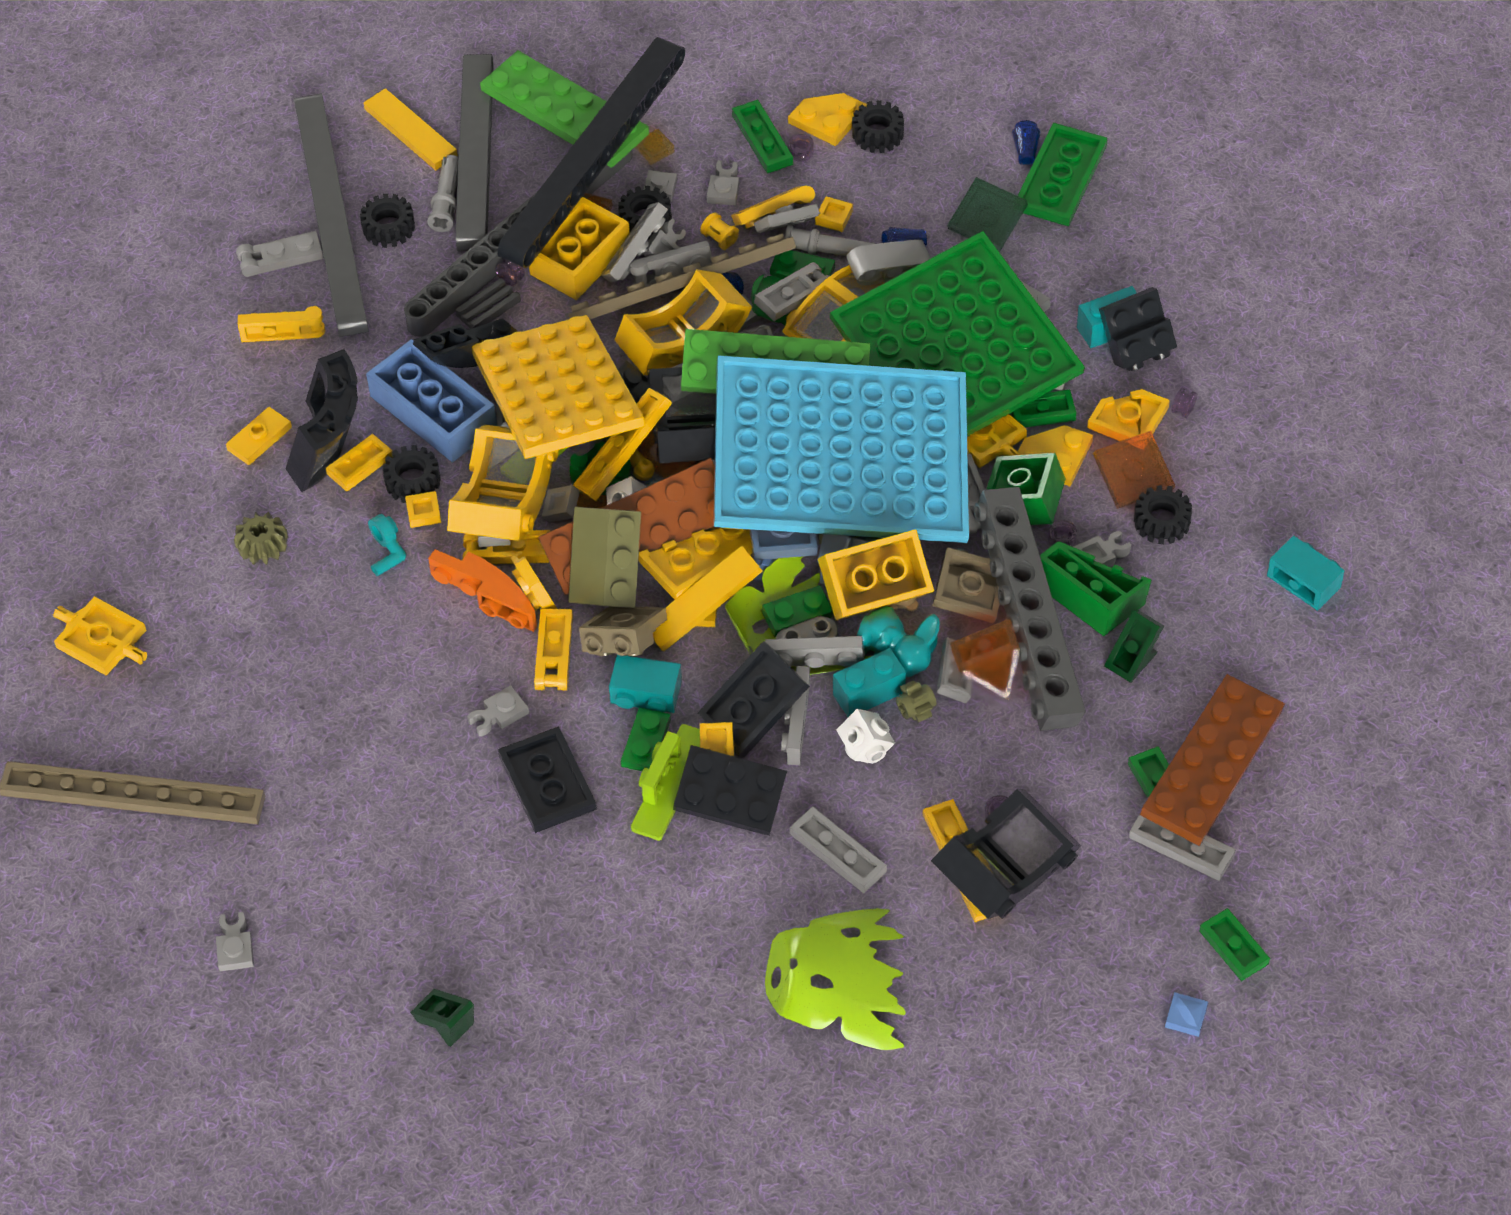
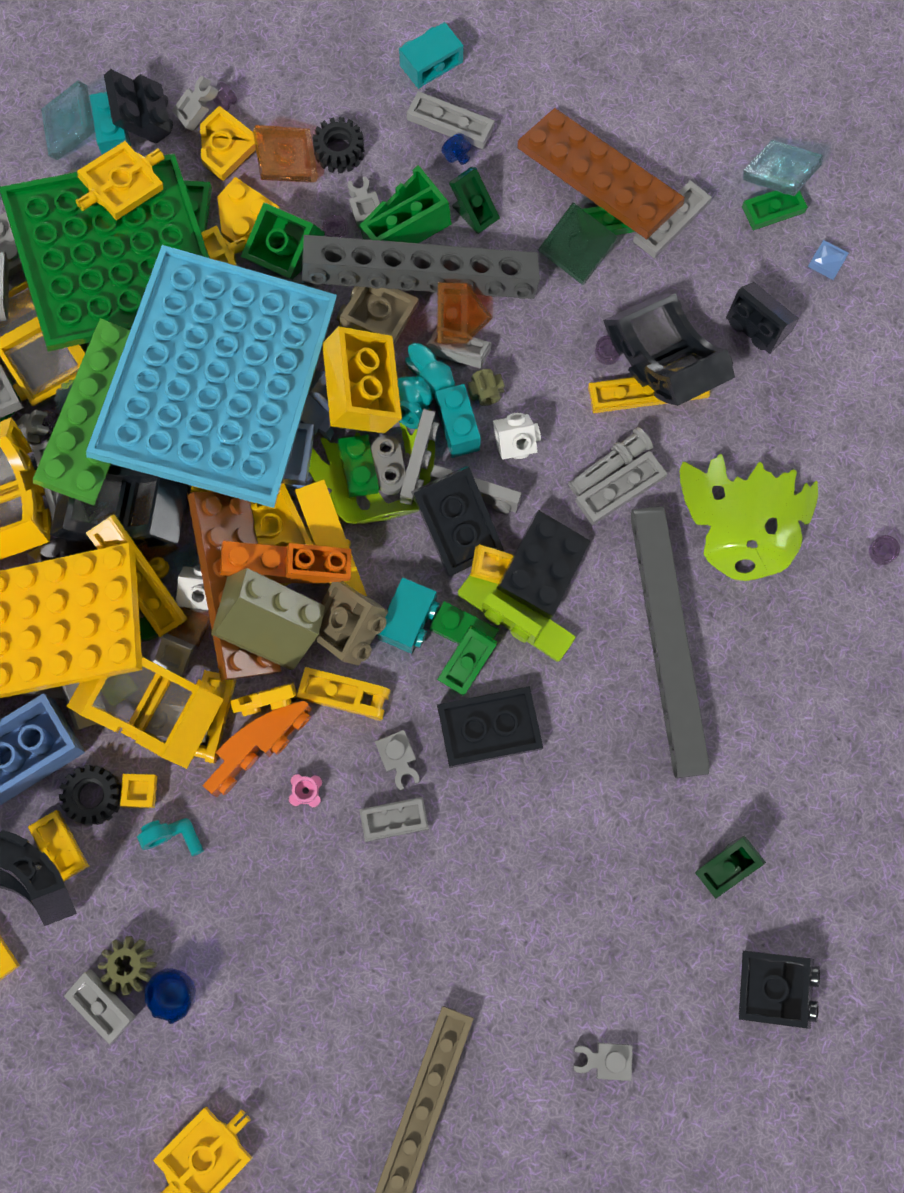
camera: 80 degrees left, 20 degrees up
(220, 527) = (100, 1006): none -> light grey plate
(240, 575) = (170, 994): none -> clear blue hair
(327, 1080) = (778, 989): none -> black plate
(436, 717) = (394, 819): none -> light grey plate
(447, 633) = (298, 784): none -> bright pink plate
(609, 741) = (467, 660): none -> green plate
(664, 553) = (287, 564): none -> orange slope
(676, 922) = (669, 643): none -> dark grey beam
(831, 1111) = (891, 542): none -> clear purple bush
(874, 841) = (621, 455): none -> light grey pin
(1027, 324) = (120, 180): none -> yellow plate
(1081, 943) = (760, 317): none -> black slope
(1102, 279) = (67, 120): none -> clear light blue plate
(1115, 754) = (578, 243): none -> clear green tile
(1162, 377) = (192, 106): none -> light grey plate
(1196, 620) = (456, 149): none -> clear blue tile
(1232, 609) = (450, 119): none -> light grey plate
(1283, 937) = (782, 167): none -> clear light blue plate

